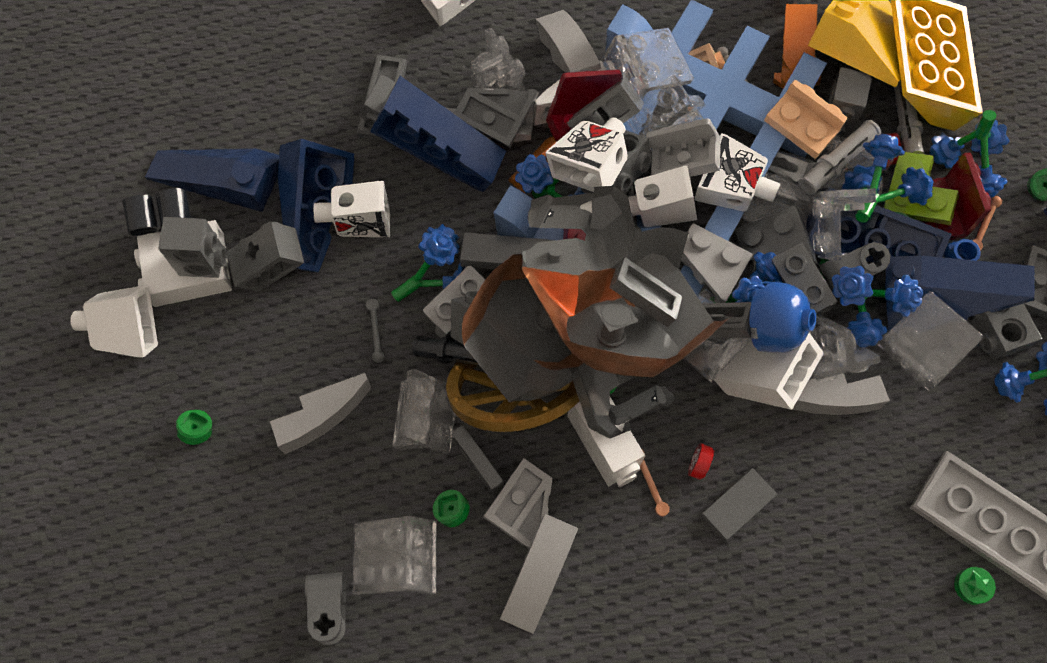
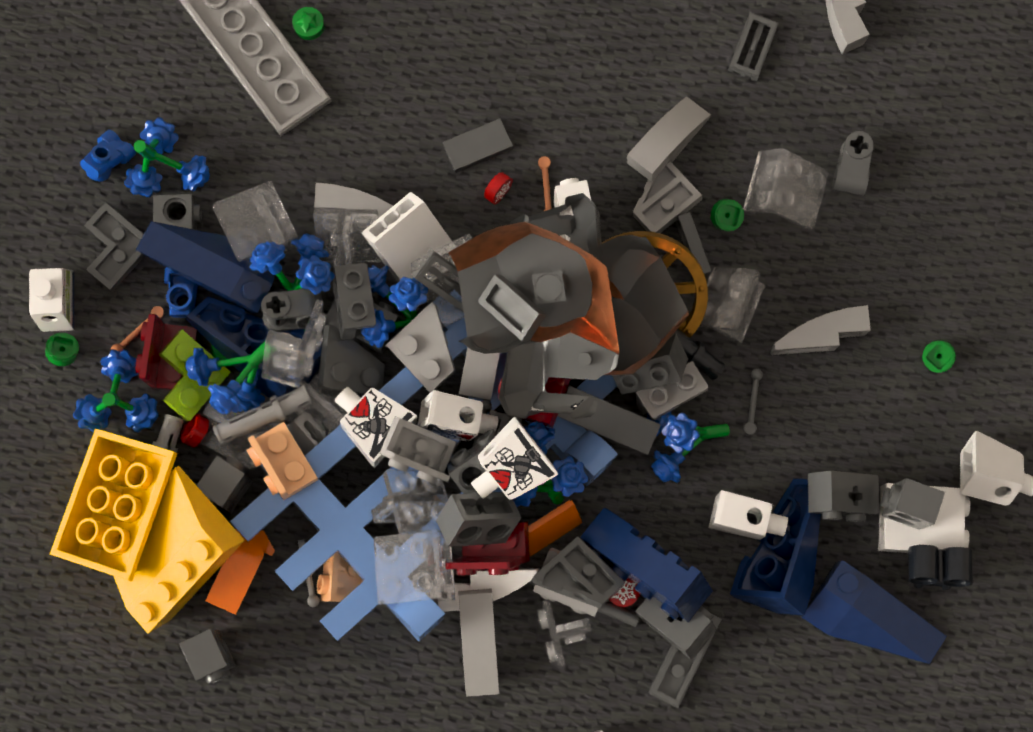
camera: 165 degrees left, 10 degrees up
(781, 317) = (397, 256): blue cylinder -> none

